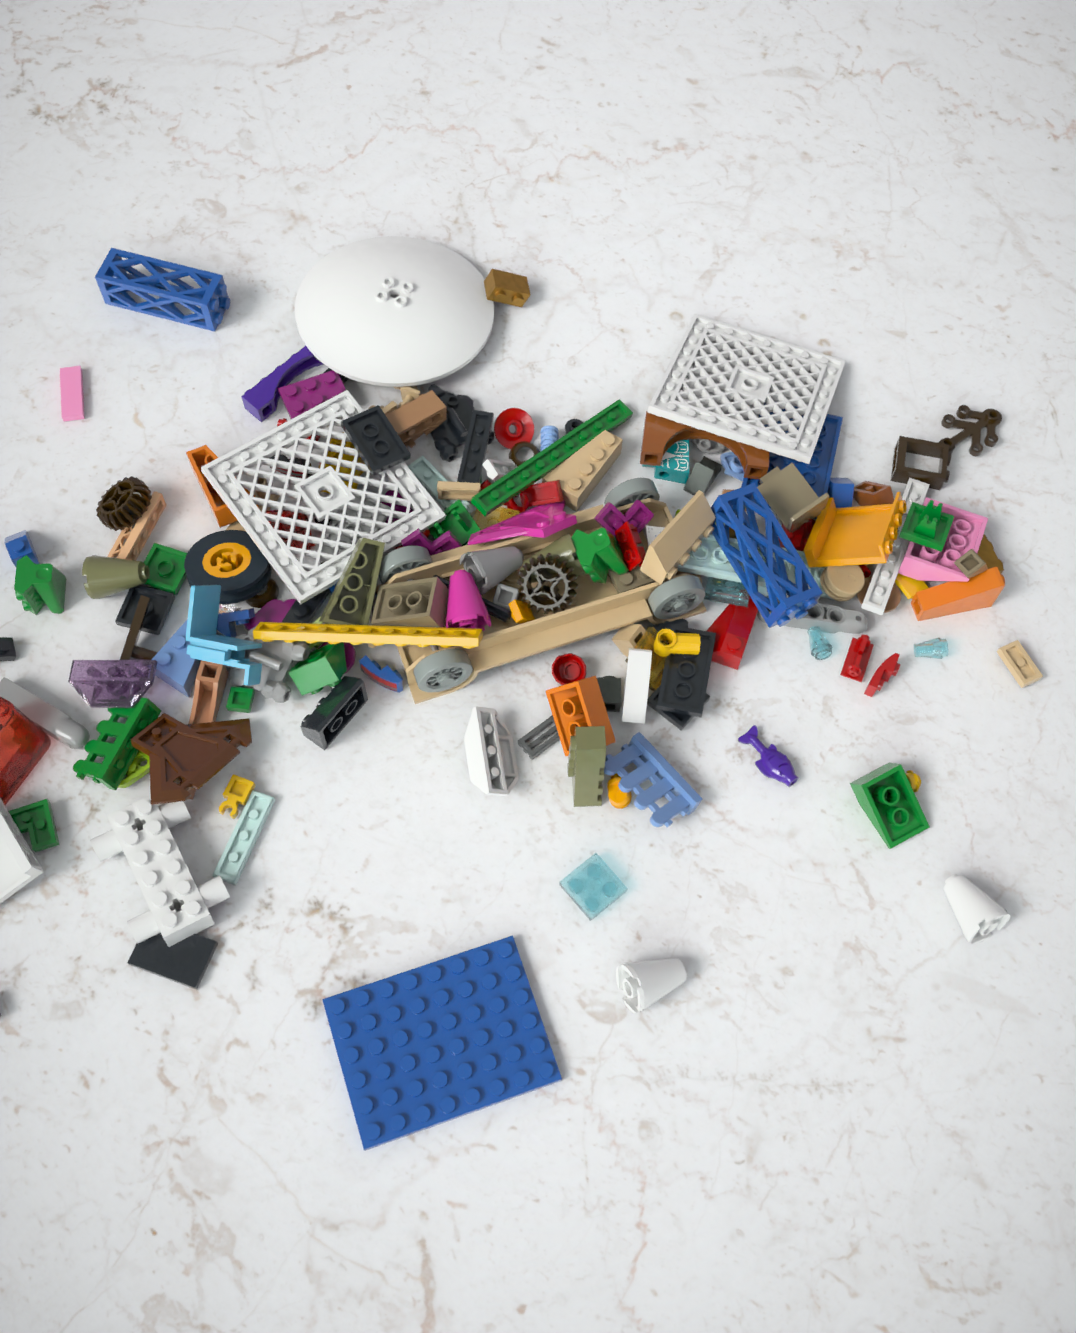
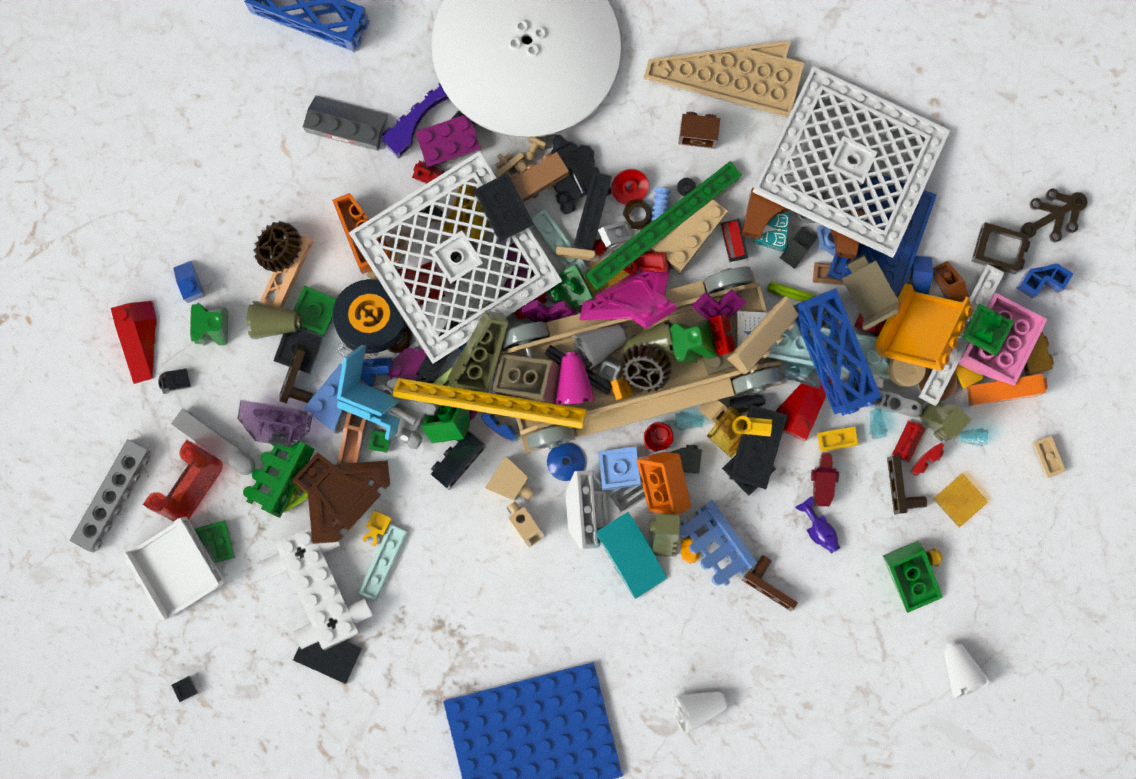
camera: 10 degrees right, 20 degrees up
(72, 393) = (224, 116): bright pink tile -> none
(201, 392) = (345, 123): none -> dark grey slope
(396, 732) = (509, 481): none -> tan torso
(418, 778) = (528, 529): none -> tan torso
(453, 715) = (558, 469): none -> blue dish
(506, 288) = (634, 27): pearl gold brick -> none
(526, 708) = (619, 468): none -> light blue plate
(549, 802) = (631, 555): none -> teal slope
(583, 371) = (699, 130): none -> reddish brown brick
(593, 886) = (661, 627): clear light blue plate -> none
(599, 653) = (687, 420): none -> clear light blue cone
(625, 327) = (741, 75): none -> tan wing
(630, 466) = (733, 240): none -> slope
(636, 685) = (713, 459): white slope -> none
(703, 824) = (755, 580): none -> reddish brown piece
(768, 704) = (824, 480): none -> dark red hinge
(775, 661) = (837, 439): none -> yellow plate
(854, 709) = (900, 503): none -> dark brown piece
(897, 626) = (944, 420): none -> olive wedge
(928, 718) = (960, 500): none -> clear yellow tile
(971, 564) = (1019, 371): dark tan slope -> none
(980, 483) = (1053, 276): none -> blue brick

